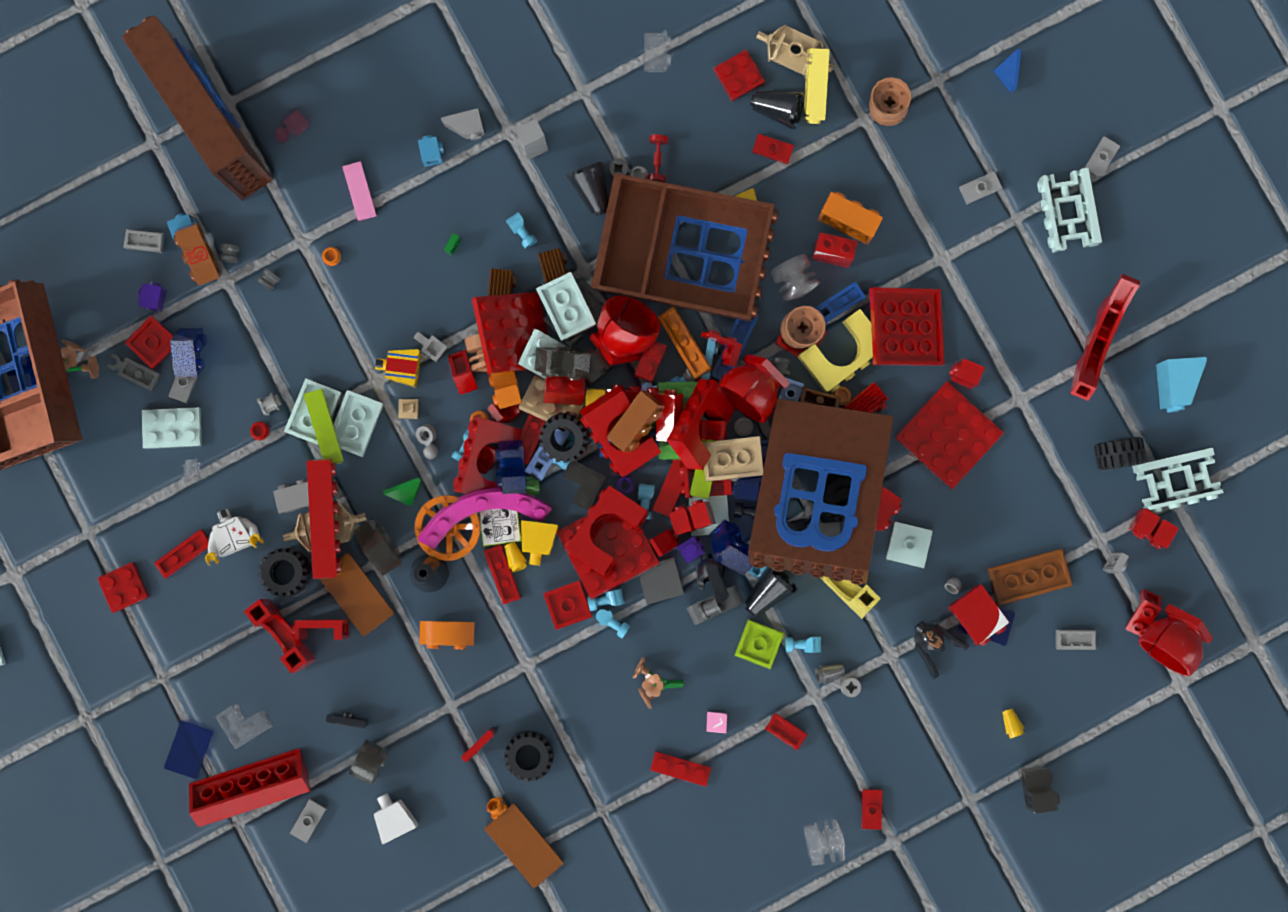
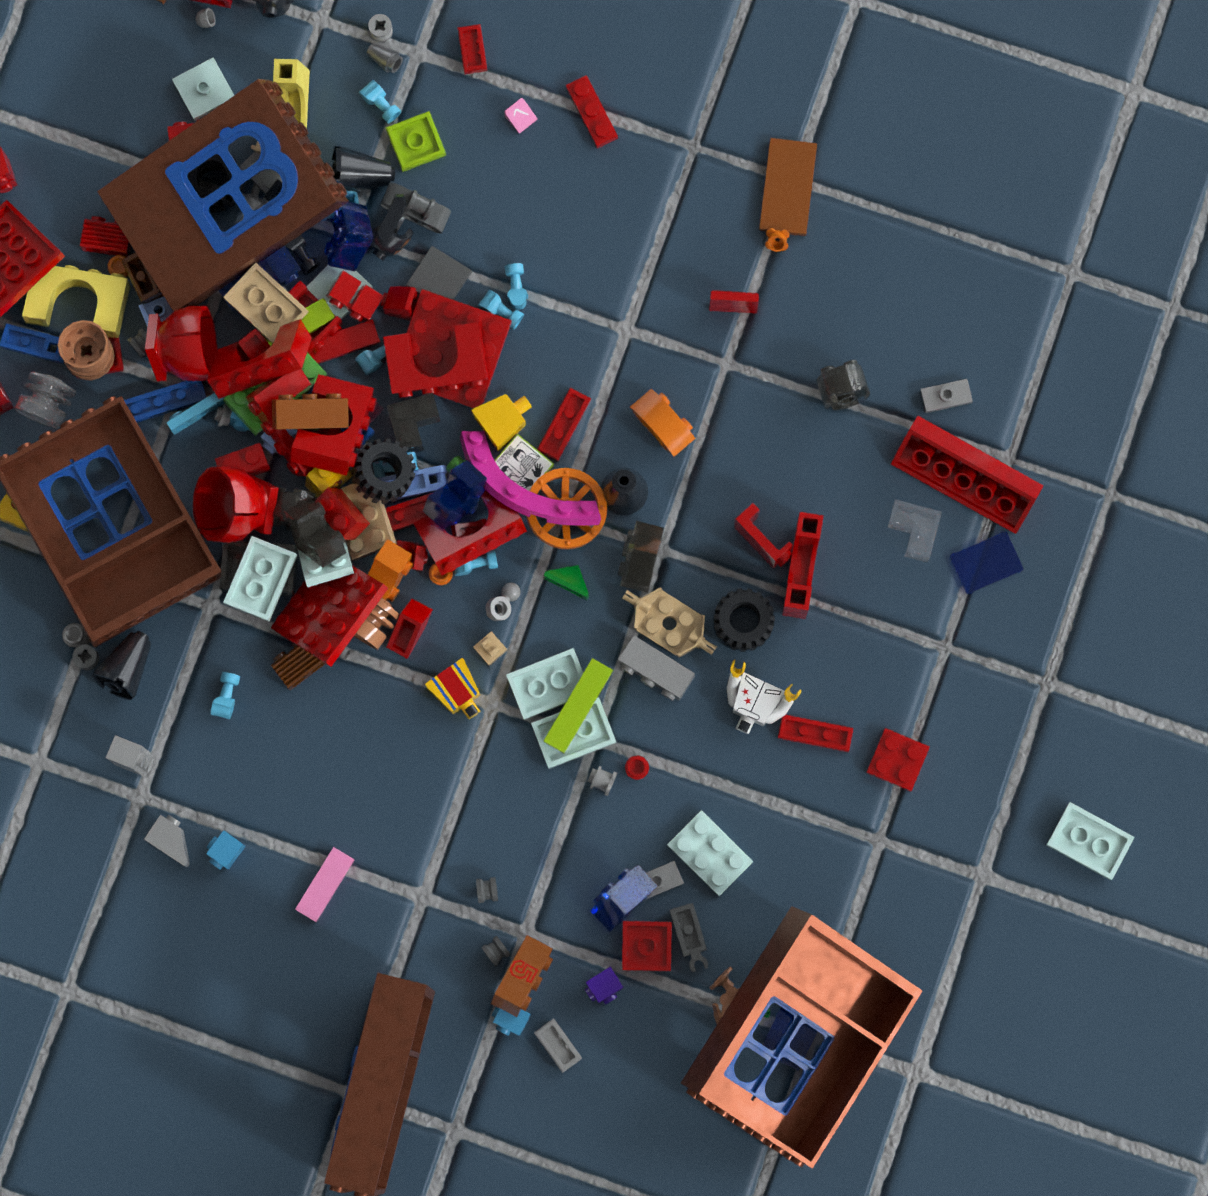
camera: 135 degrees left, 5 degrees down
(191, 470) = (731, 795): clear brick -> none
(295, 123) = (314, 1007): clear pink plate -> none
(322, 518) = (659, 622): red brick -> none
(331, 256) = (411, 853): orange plate -> none
(346, 719) = (824, 442): black plate -> none
(358, 596) = (704, 539): dark orange tile -> none
(393, 819) = (873, 320): white torso -> none
(432, 348) = (412, 677): light grey plate -> none
(452, 244) = (296, 747): green tile -> none
(515, 558) = (537, 425): yellow cone -> none
(521, 771) = (703, 269): black tyre -> none
(552, 264) = (234, 631): reddish brown brick -> none
(567, 605) = (537, 339): red plate -> none
(629, 480) = (380, 379): dark purple plate -> none
(653, 683) = (536, 193): nougat plant -> none
(657, 140) = (42, 630): red wheel -> none
(685, 343) = (197, 446): orange tile -> none
(691, 549) = (384, 273): dark purple brick -> none
(731, 353) = (165, 395): red bracket -> none
(743, 426) = (228, 328): light grey plate -> none
(949, 435) = (69, 140): red plate -> none

